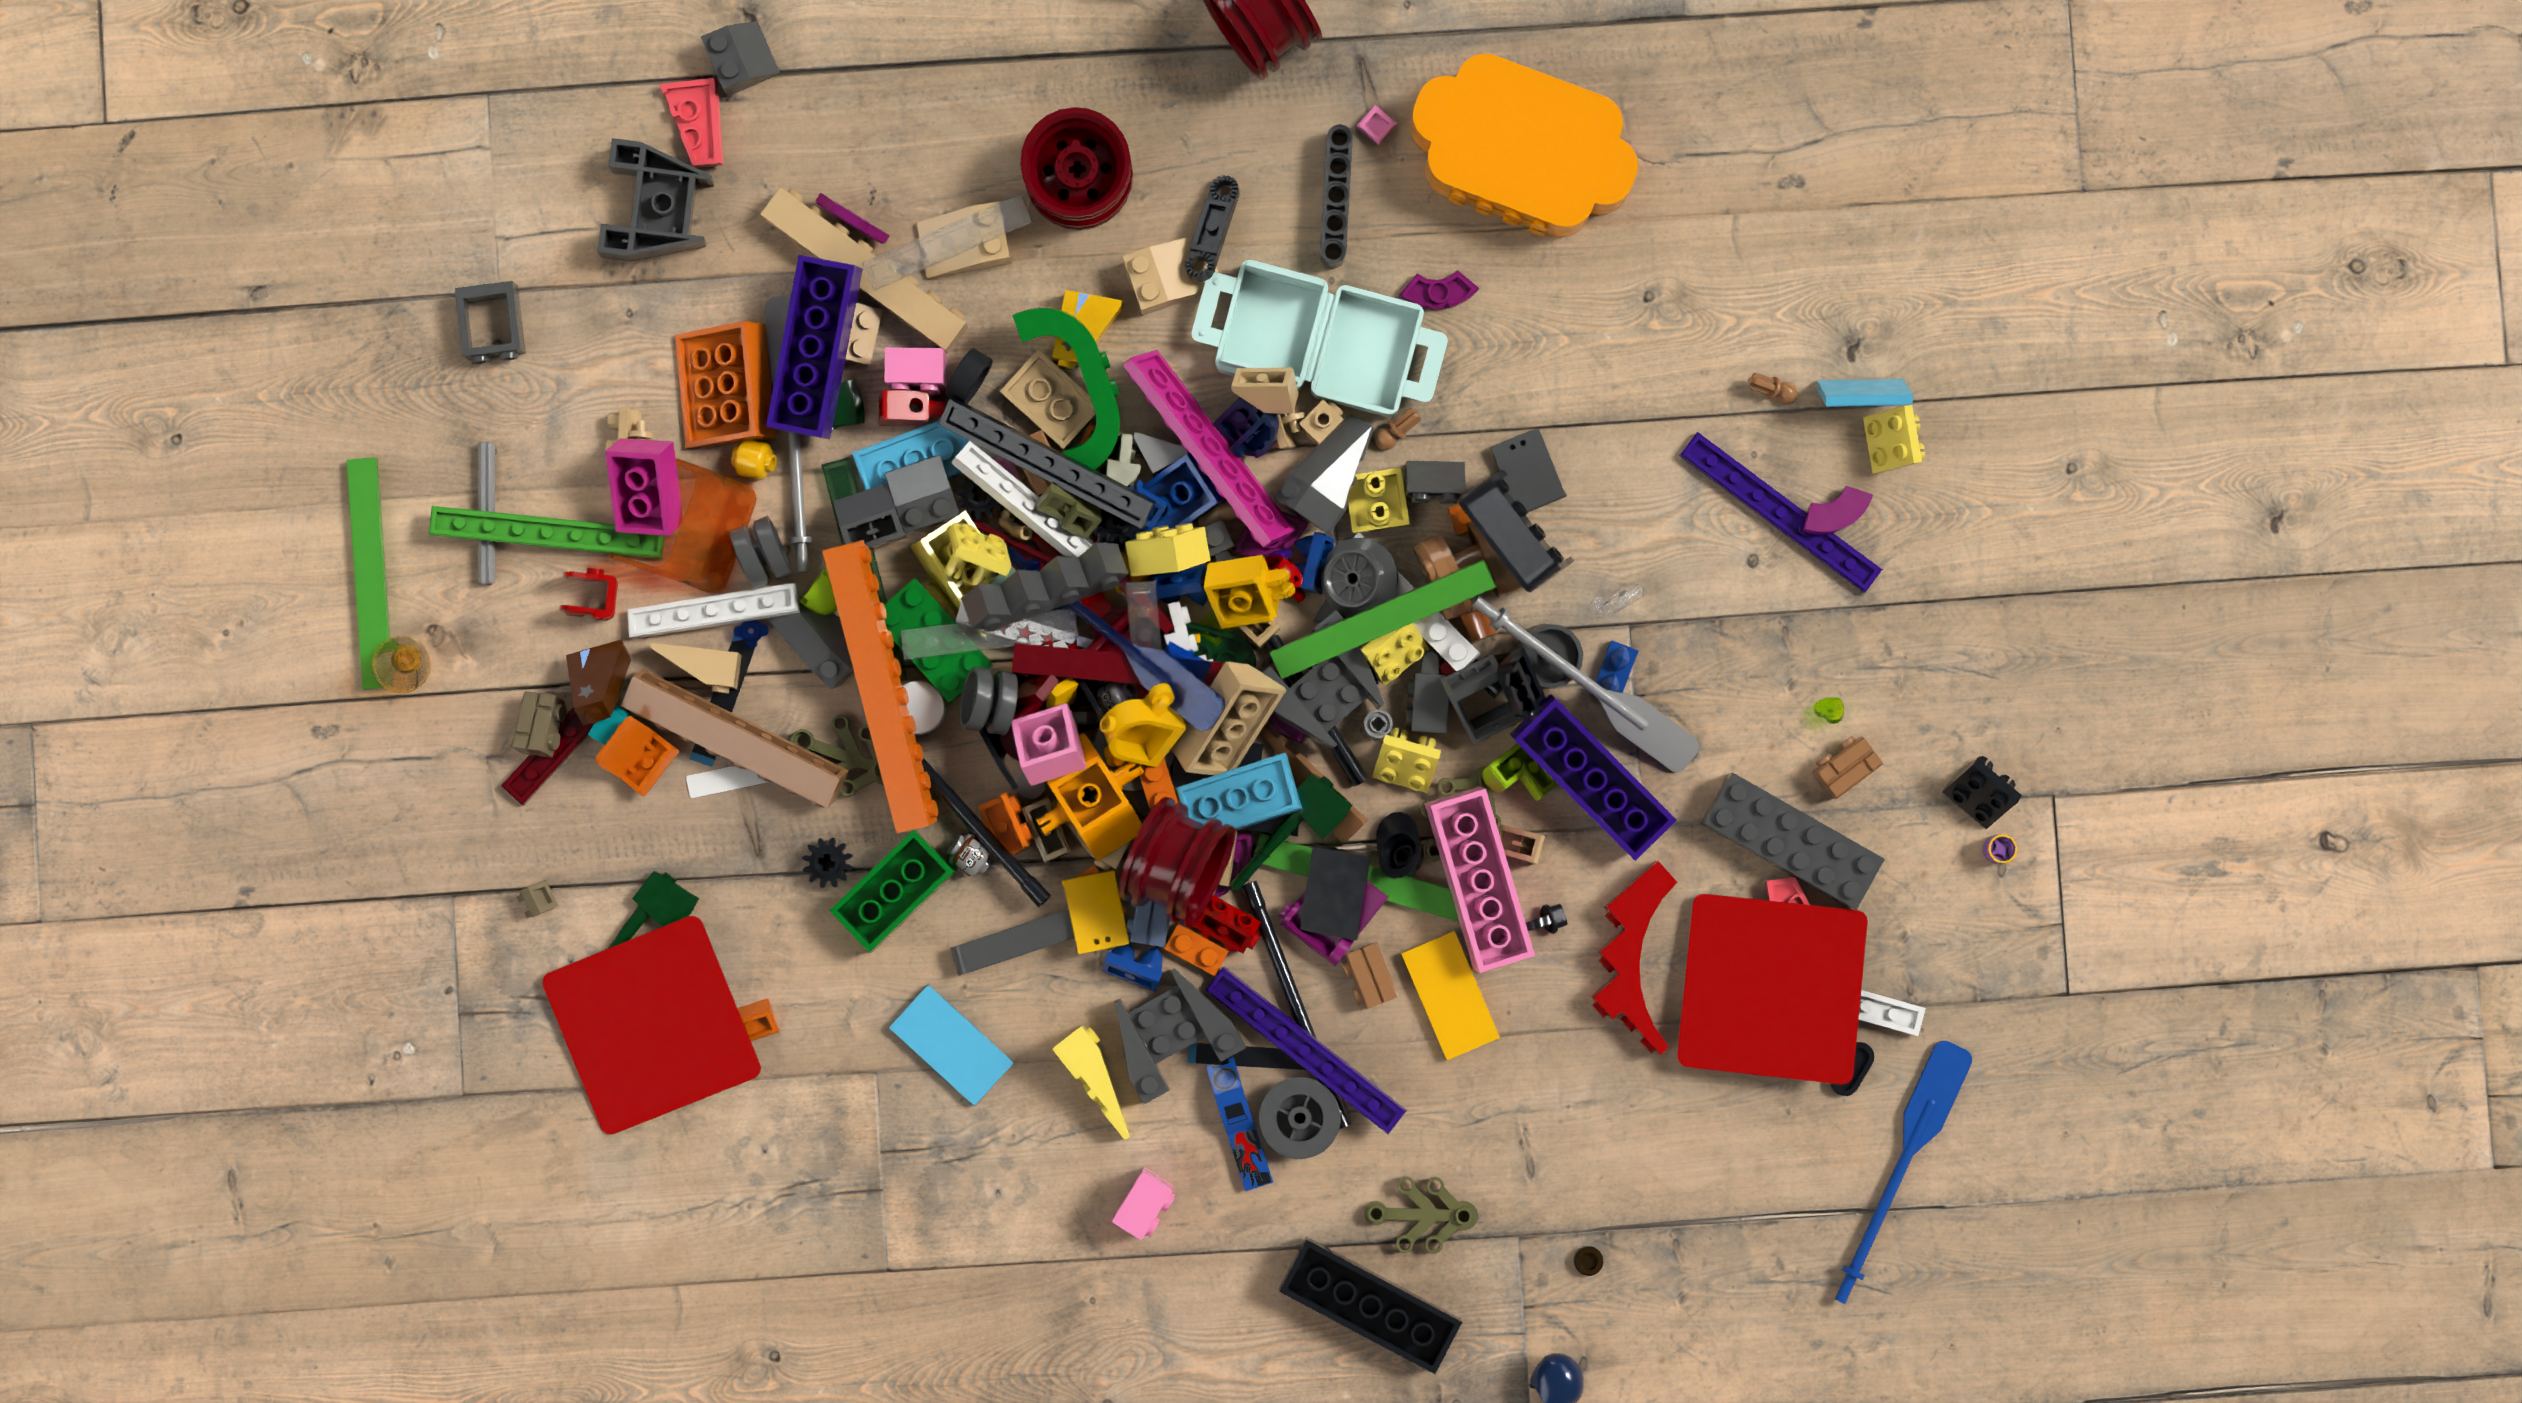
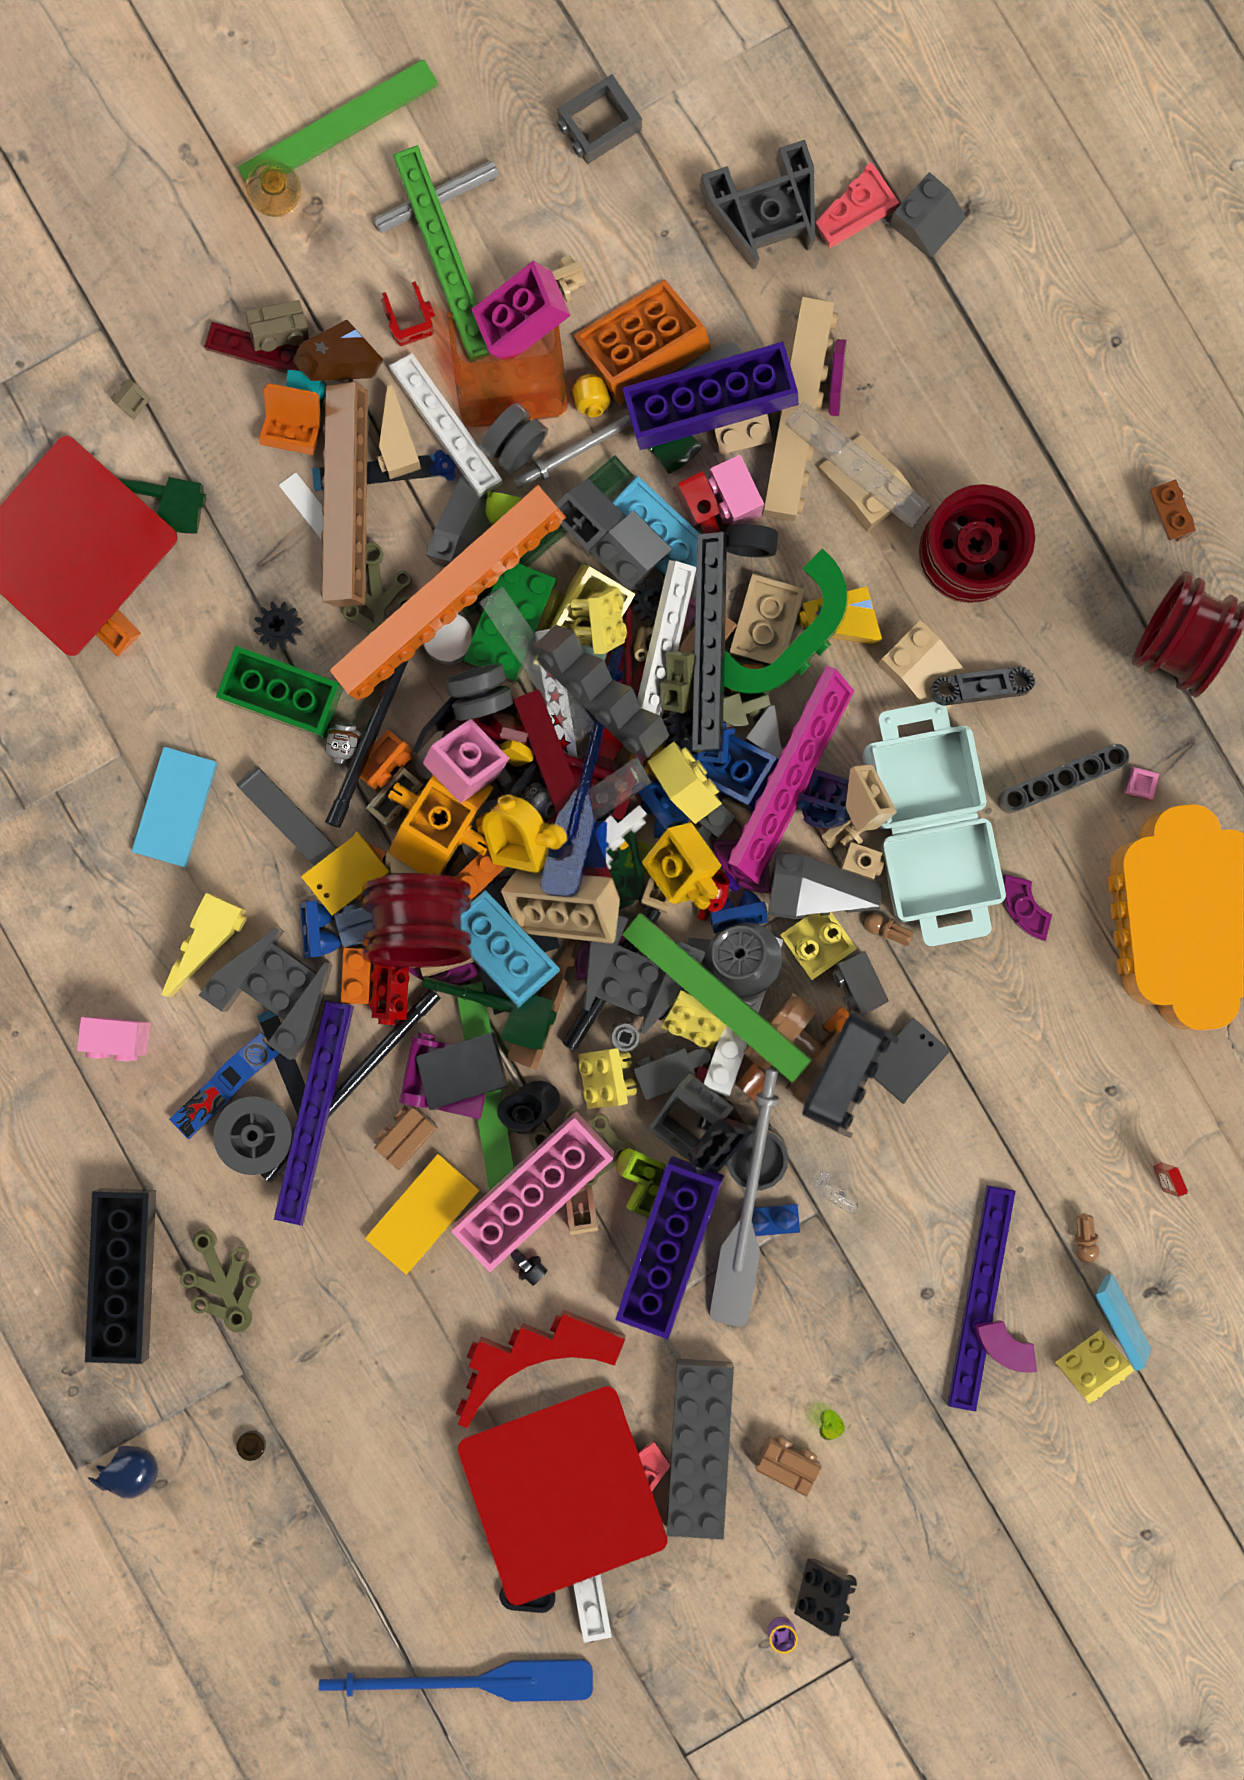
camera: 65 degrees right, 0 degrees up
(1755, 284) = (1170, 1179): none -> red tile

